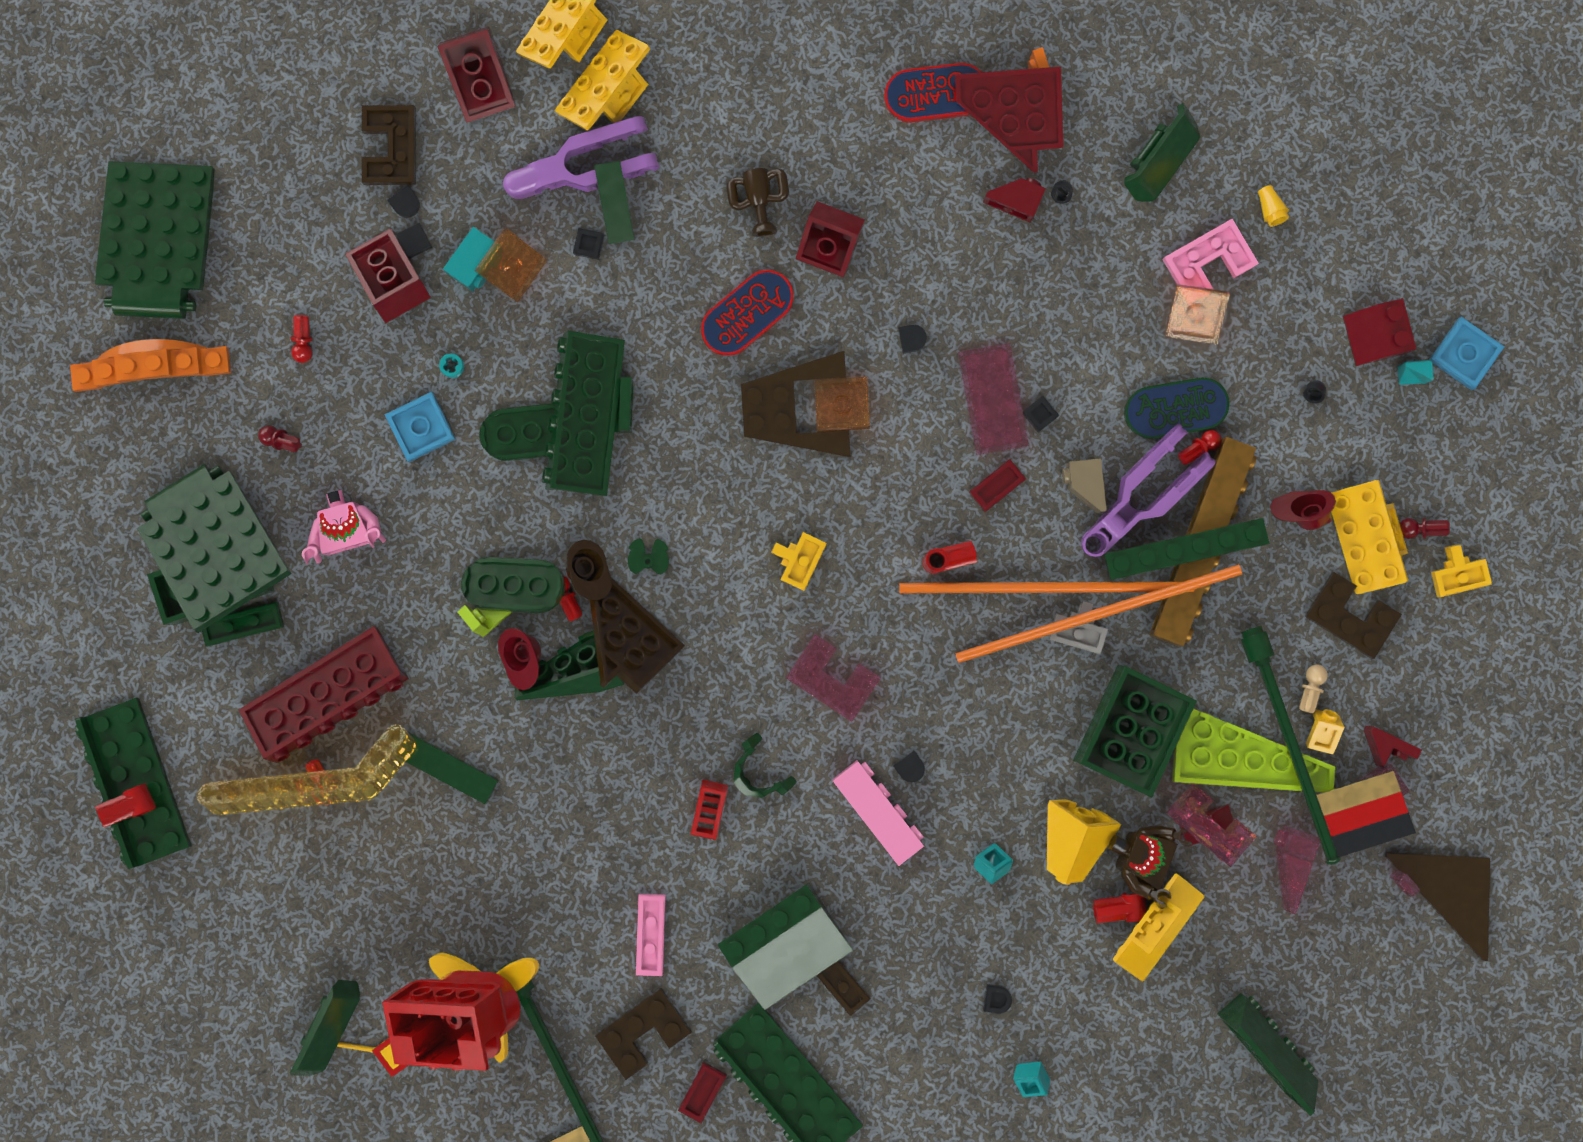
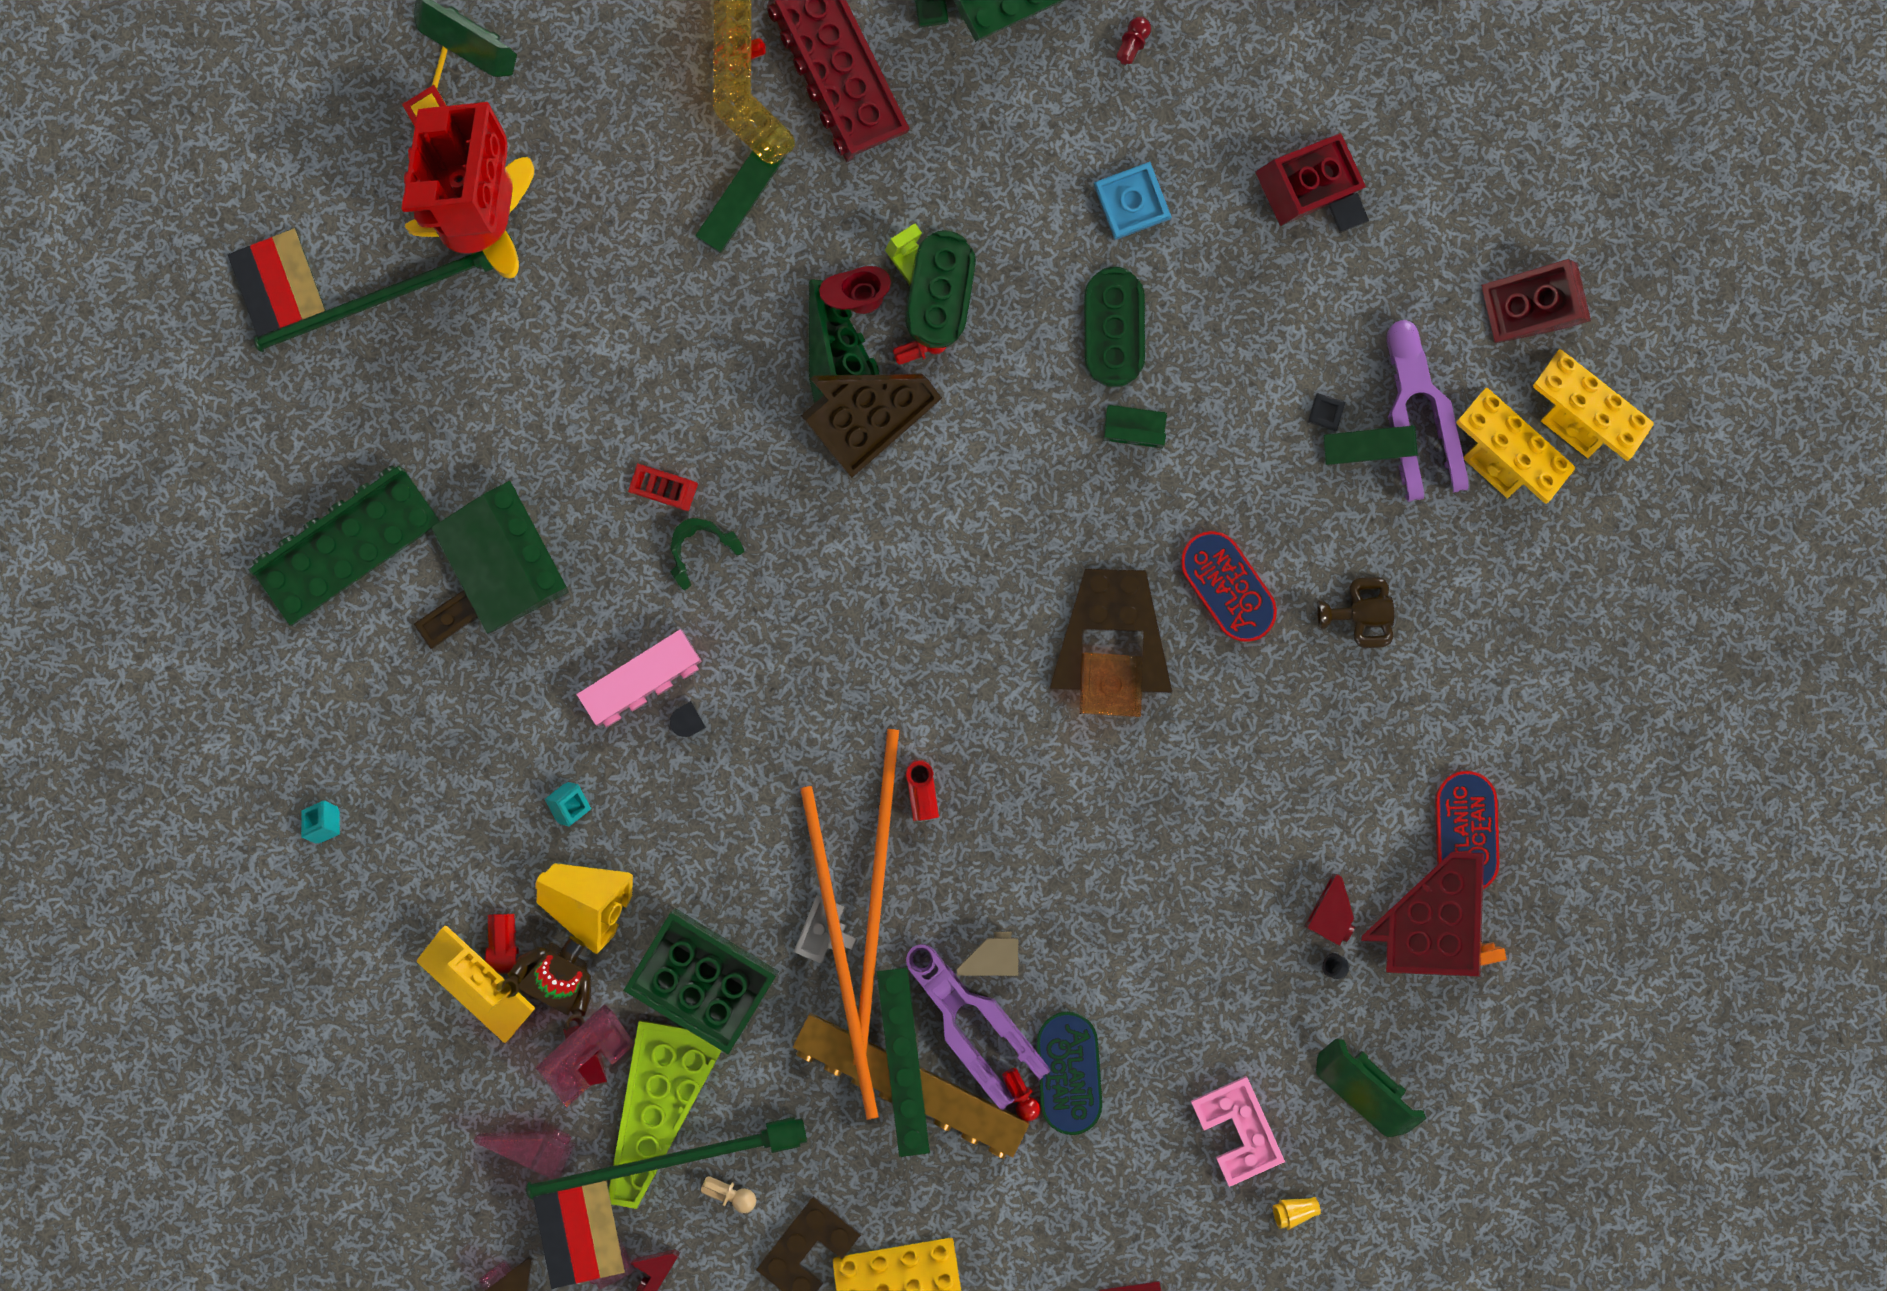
camera: 90 degrees right, 0 degrees up
(301, 351) = (1232, 74): red axle -> none
(341, 528) = (1024, 102): bright pink torso -> none
(400, 125) = (1440, 205): dark brown plate -> none
(405, 202) = (1393, 206): black tile -> none
(444, 363) = (1204, 234): teal bush -> none
(467, 258) = (1318, 278): teal brick -> none
(511, 265) = (1308, 320): clear orange plate -> none
(583, 413) = (1128, 387): dark green bracket -> none
(588, 570) = (948, 376): dark brown piece -> none
(620, 1035) = (442, 402): dark brown plate -> none
(639, 559) = (954, 435): dark green piece -> none
(650, 934) = (529, 408): bright pink tile -> none
(702, 1092) = (346, 449): dark red tile -> none
(800, 559) = (936, 618): yellow hinge -> none
(830, 239) = (1305, 690): dark red slope -> none
(843, 699) = (773, 650): clear pink plate -> none
(912, 338) = (1180, 774): black tile -> none
(993, 399) = (1101, 860): clear pink plate -> none
(996, 999) = (414, 792): black tile -> none
(997, 485) = (1000, 855): dark red tile -> none
(1040, 414) = (1078, 913): black tile -> none
(1196, 314) = (1176, 1107): clear orange plate -> none
(1272, 1051) = (322, 1096): dark green slope -> none
(1306, 508) = (938, 1208): dark red piece -> none
(1317, 393) = (1071, 1239): black hinge -> none
(1325, 731) = (678, 1202): yellow bracket -> none

